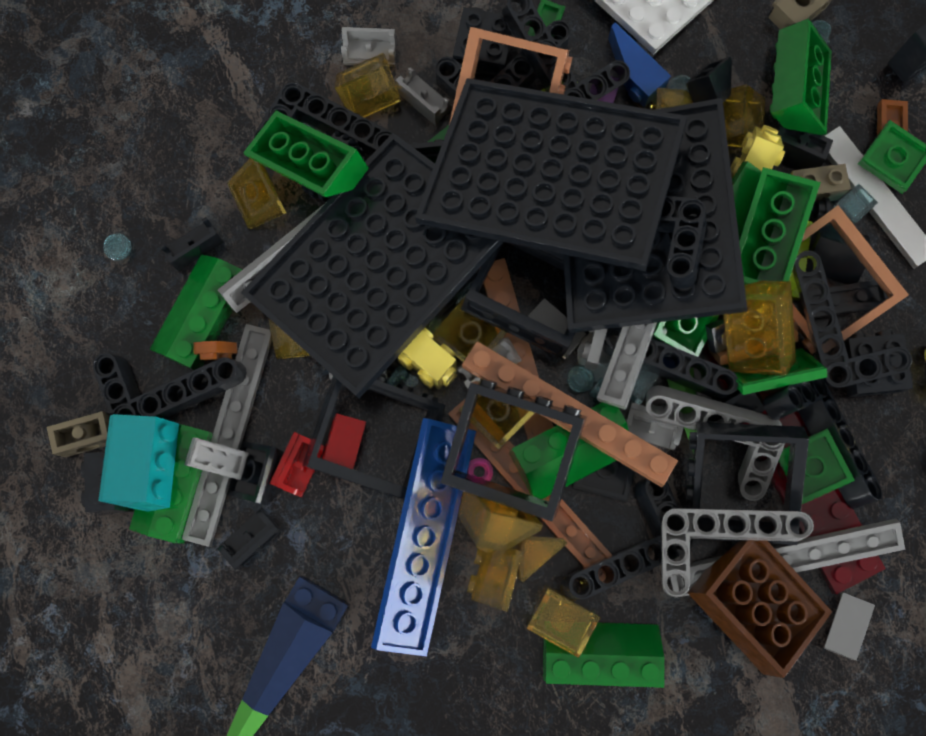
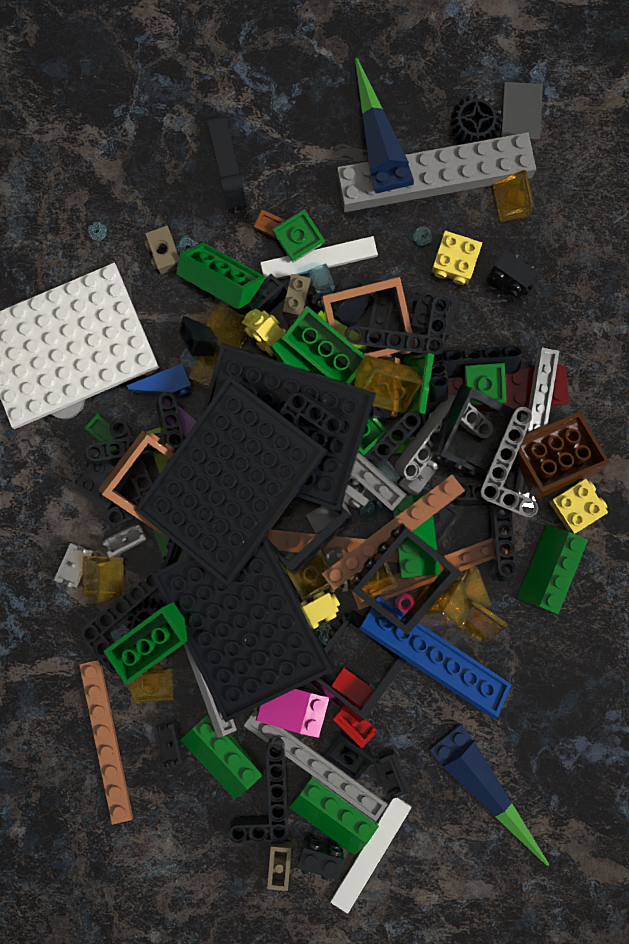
camera: 65 degrees left, 5 degrees up
(117, 247) = (151, 797): clear light blue plate -> none
(137, 550) = (370, 855): none -> white tile
(139, 462) = (317, 832): teal slope -> none
(166, 168) = (106, 742): none -> nougat plate
(215, 349) = (257, 754): dark orange plate -> none
(216, 458) = (332, 778): light grey plate -> none
(287, 378) = (296, 711): none -> dark pink slope
(563, 621) = (523, 588): clear yellow slope -> none
(704, 658) = (578, 506): none -> light yellow brick
(849, 626) = (592, 405): light grey hinge -> none

